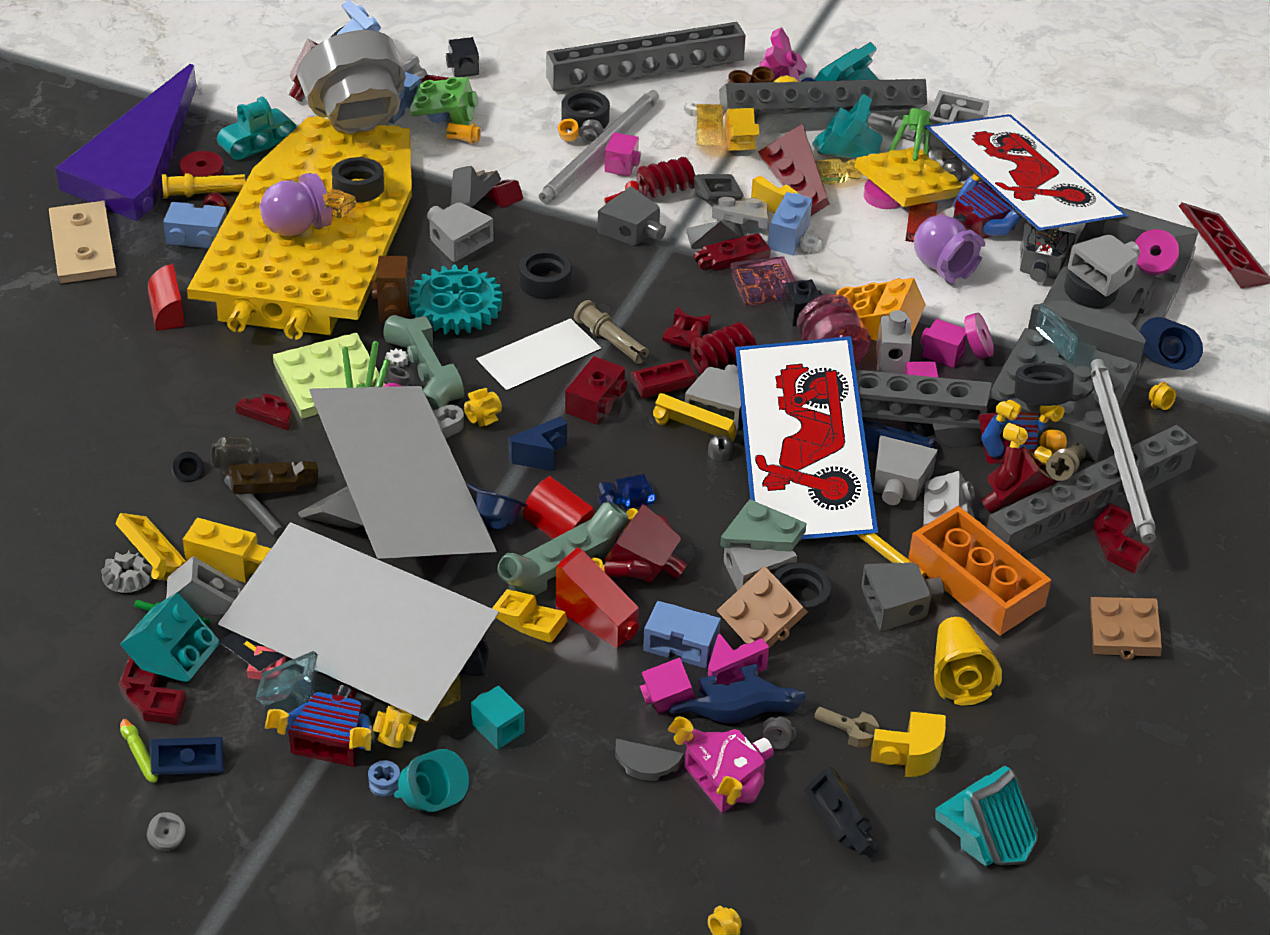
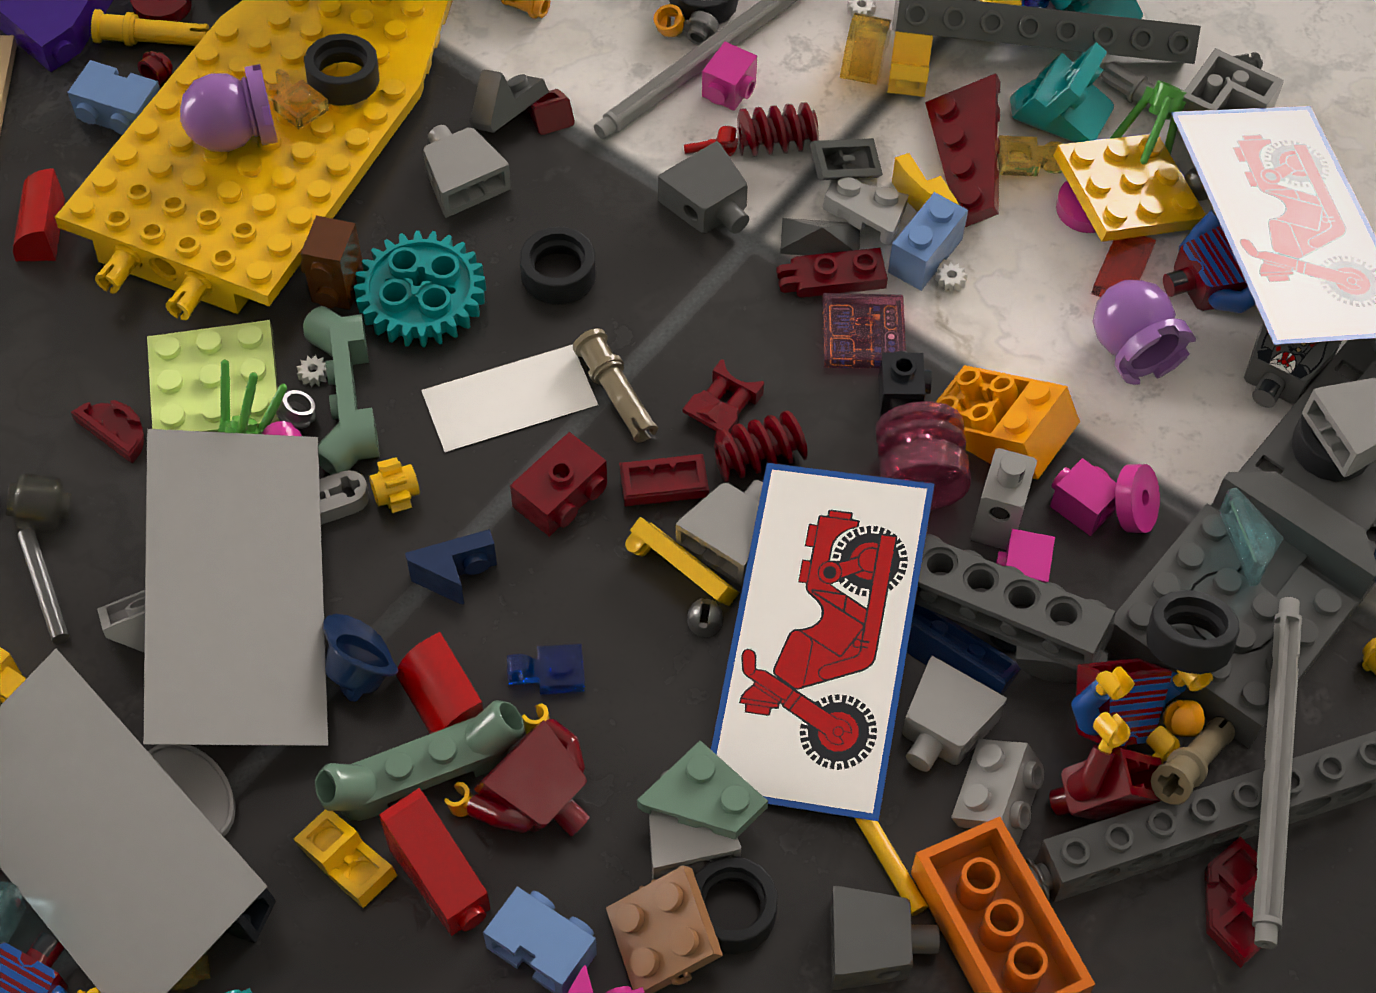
camera: 15 degrees right, 15 degrees up
(271, 476) = (74, 546): dark brown hinge -> none

